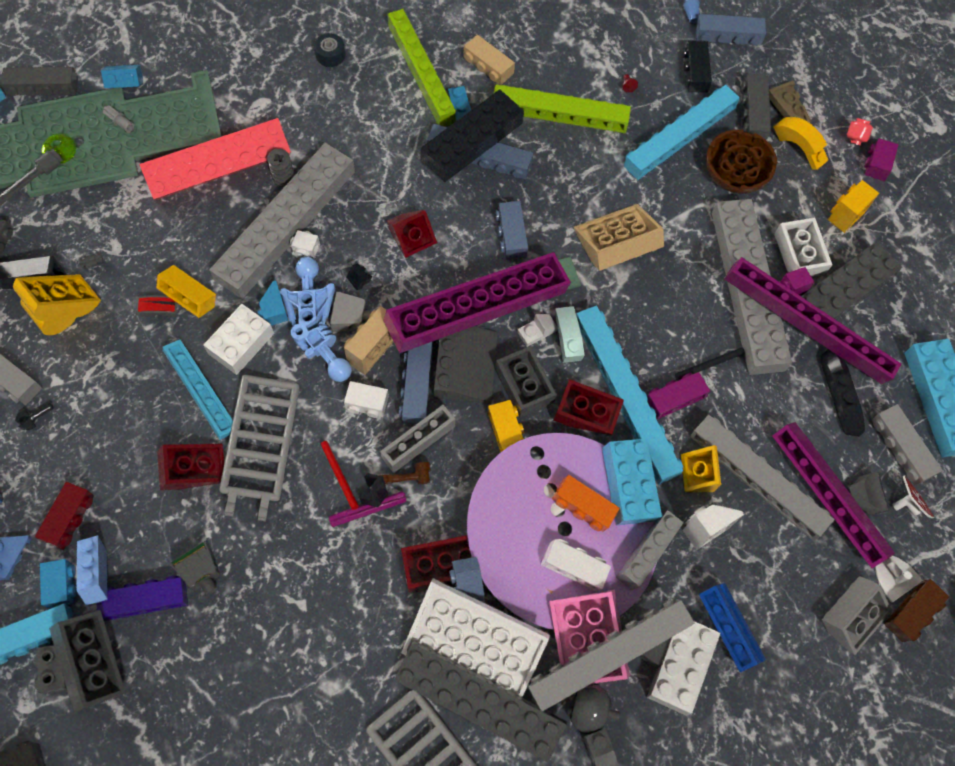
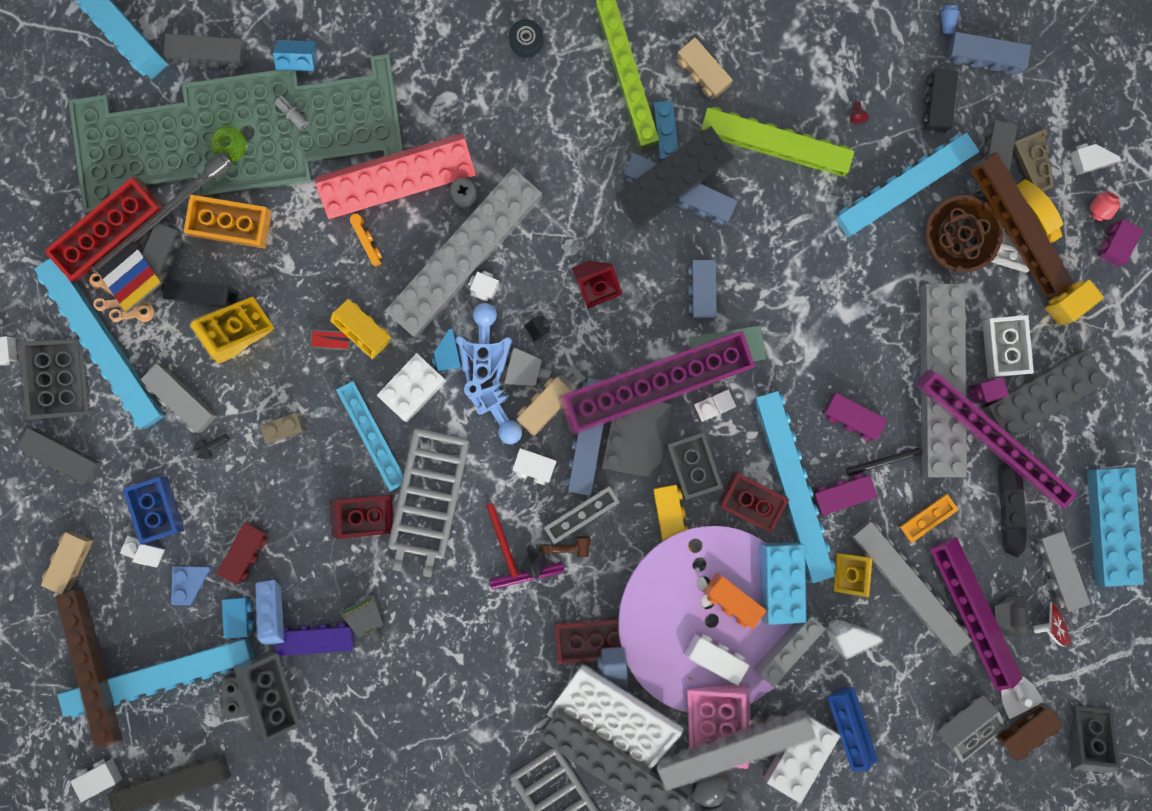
camera: 10 degrees right, 20 degrees up
(56, 211) = (227, 221): none -> light orange brick
(108, 388) = (283, 428): none -> dark tan brick
(190, 216) = (366, 239): none -> light orange plate
(569, 335) = (745, 416): light aqua slope -> none
(620, 236) = (815, 308): tan slope -> none
(673, 324) = (854, 417): none -> magenta brick
(764, 410) = (928, 518): none -> light orange plate
(789, 177) = (1009, 255): none -> white wing
(790, 147) = (1021, 225): none -> reddish brown brick
(839, 97) = (1091, 158): none -> white slope

